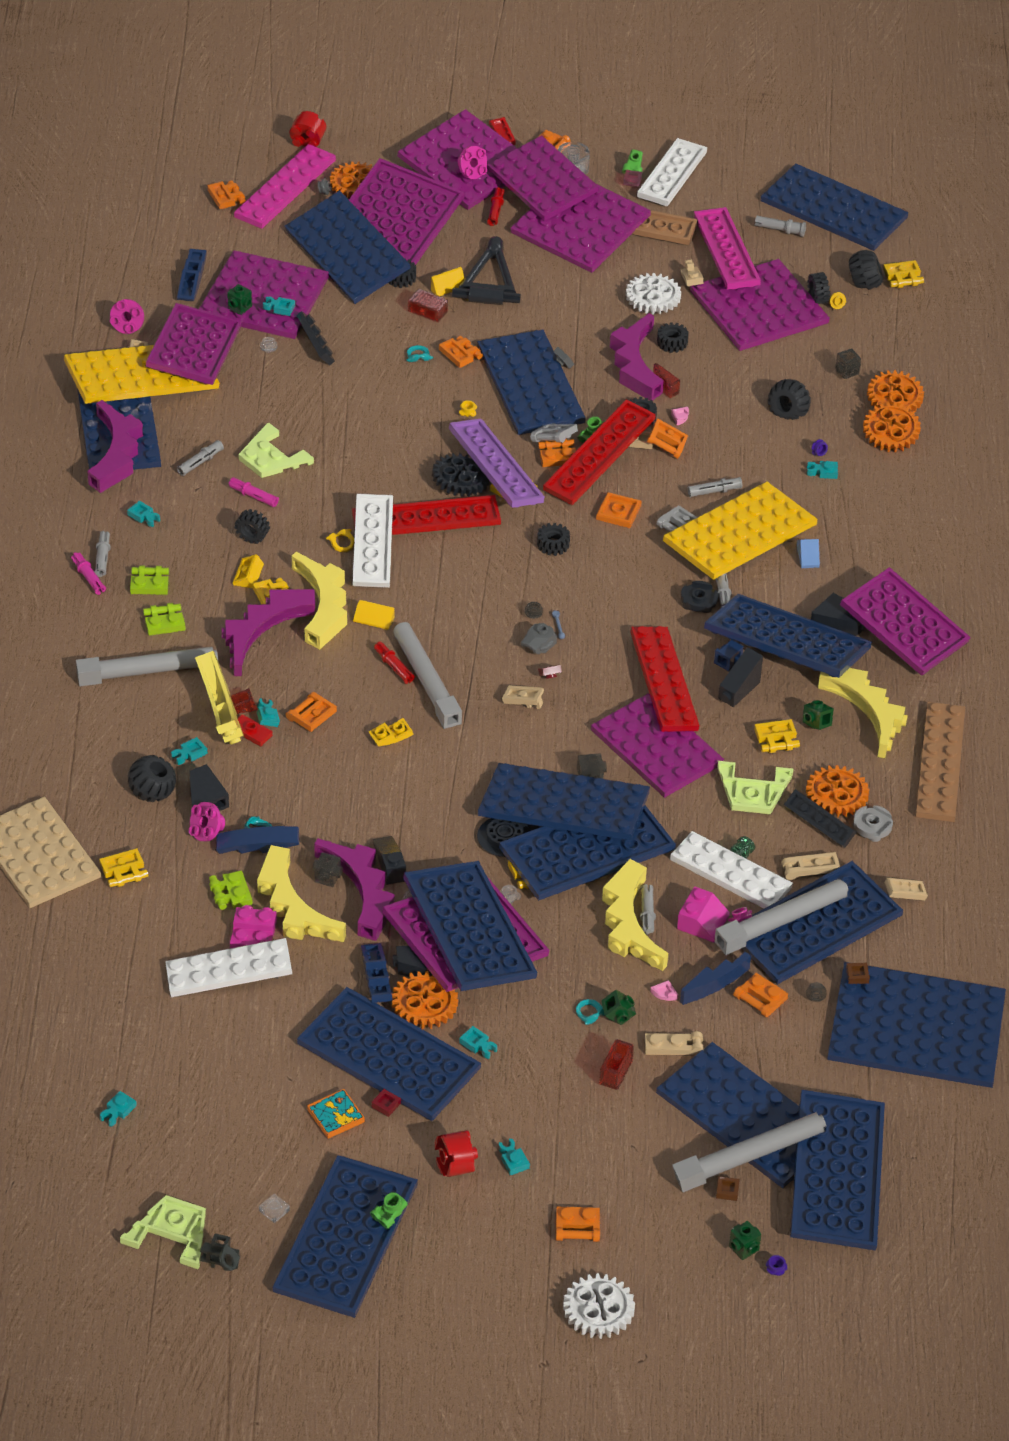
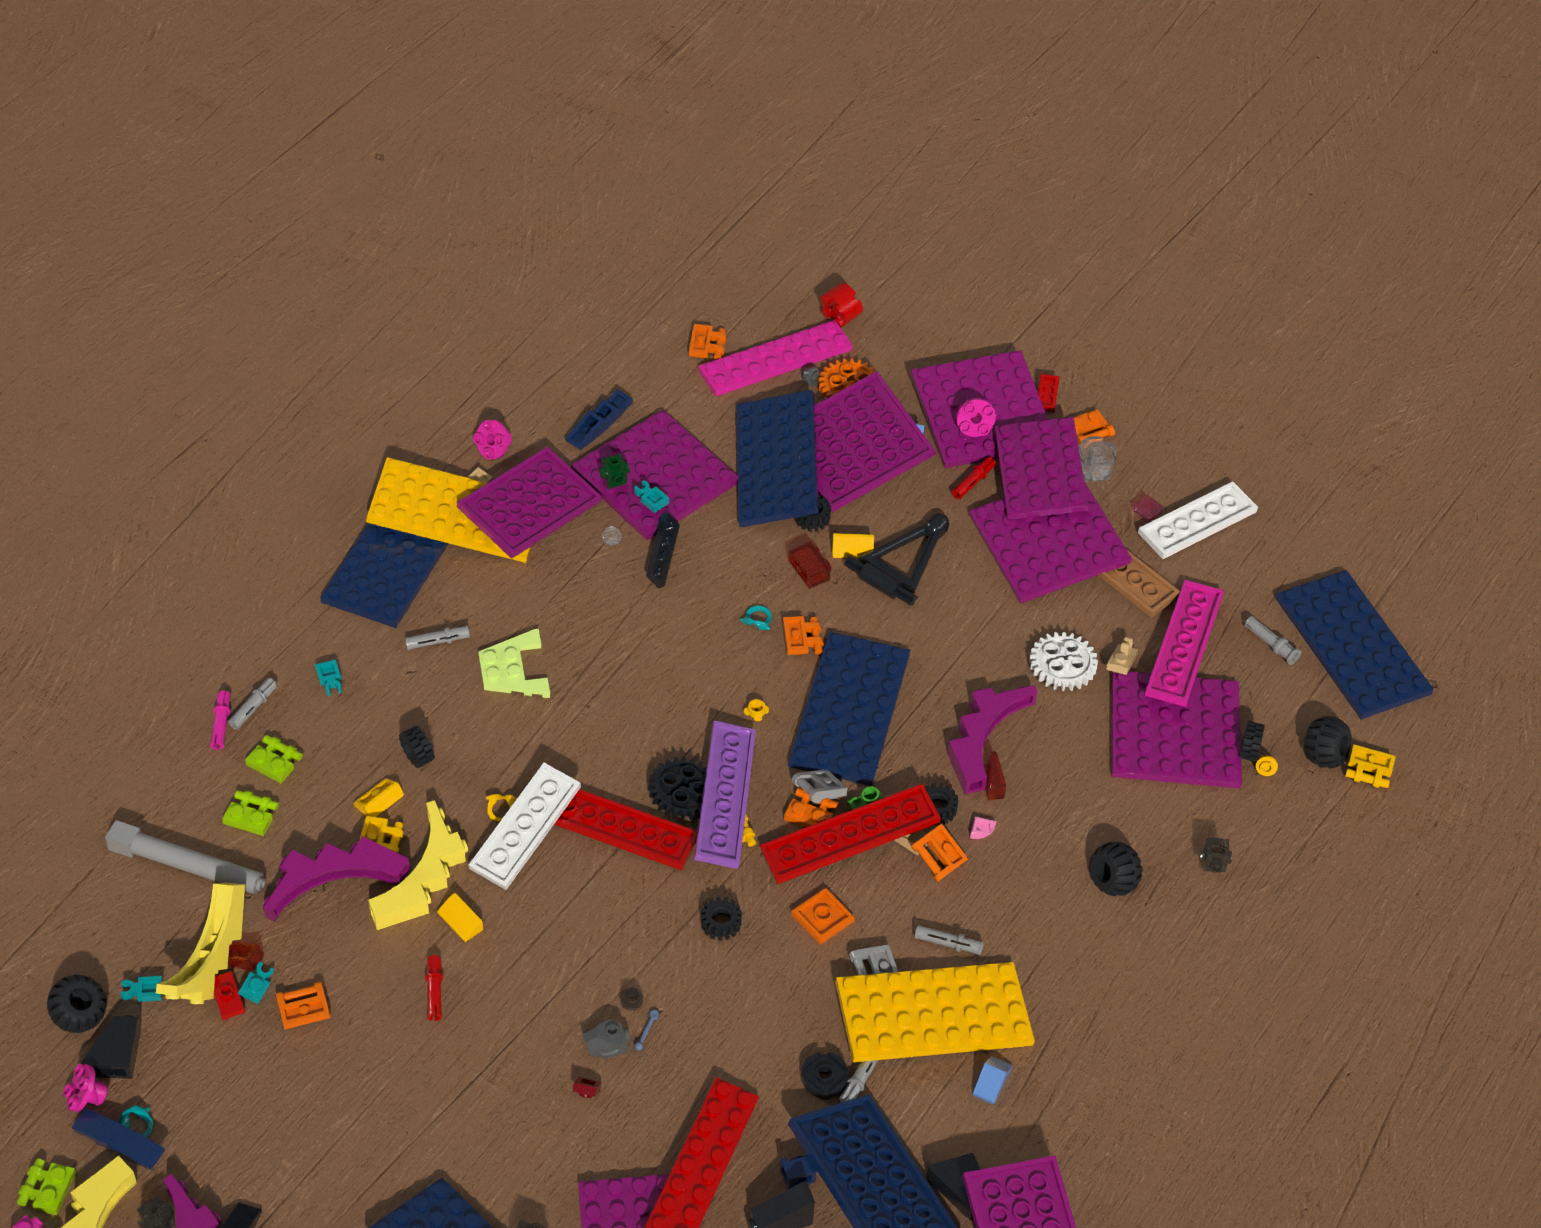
camera: 30 degrees right, 5 degrees up
(118, 460) = (341, 605): magenta arch -> none
(254, 492) = (454, 697): dark pink axle -> none
(391, 734) = (358, 1076): yellow slope -> none
(445, 706) = (441, 1070): light grey brick -> none
(523, 695) = (532, 1105): tan plate -> none
(563, 358) = (903, 695): dark grey plate -> none
(633, 162) = (1161, 494): bright green plate -> none
(675, 344) = (1043, 735): black tyre -> none
(819, 447) = (1106, 947): dark purple plate -> none
(825, 469) = (1093, 979): teal plate -> none
(891, 427) = (1225, 952): orange gear -> none
(895, 388) = (1227, 922): orange gear -> none

